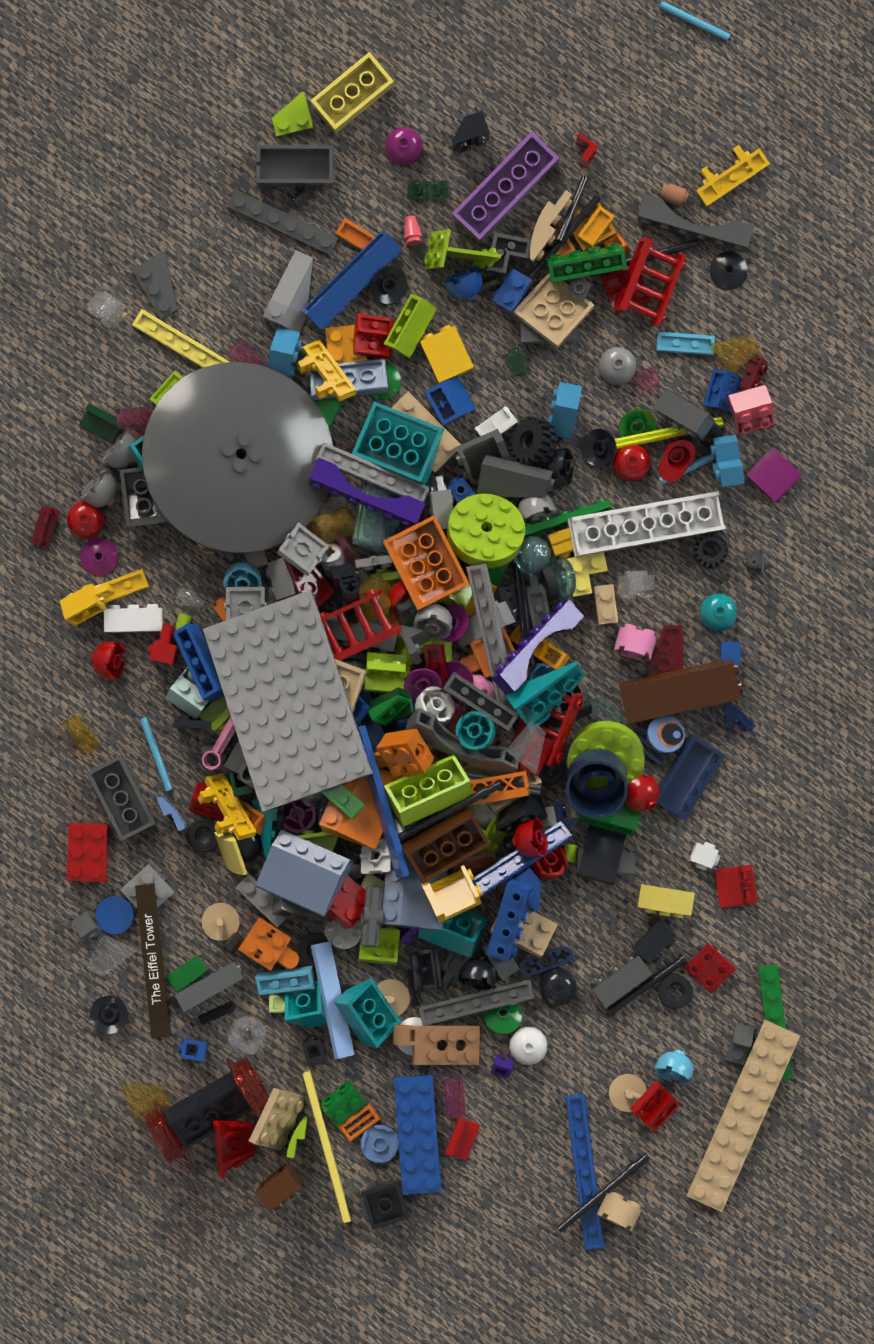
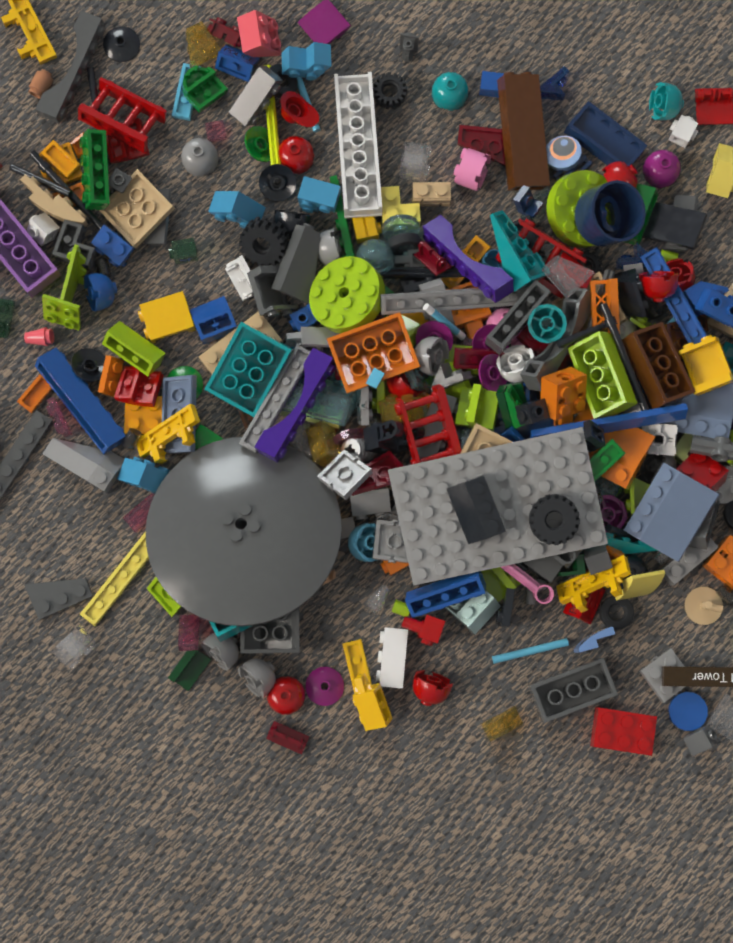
camera: 85 degrees left, 5 degrees down
(248, 806) = (597, 559): none -> dark grey panel
(279, 680) = (476, 509): none -> black slope
(291, 760) = (539, 514): none -> black tyre
(319, 336) = (131, 438): none -> clear smoke hinge
(339, 257) = (61, 424): none -> clear pink plate
(365, 786) = (593, 435): none -> black bracket
(380, 306) = (110, 376): none -> orange plate
(383, 724) = (532, 411): none -> black brick
(400, 567) = (375, 378): none -> medium azure piece
(467, 765) = (581, 335): none -> black bar
(471, 627) = (440, 318): none -> bar
(522, 218) = (42, 228): none -> white brick
(534, 612) = (431, 259): none -> dark red hinge
(587, 490) = (318, 195): none -> dark azure brick
(605, 702) = (526, 203): none -> dark blue bracket
(662, 837) = (661, 168): none -> magenta cylinder
(689, 359) = (202, 87): none -> green slope
(731, 835) = (667, 98): none -> teal cylinder

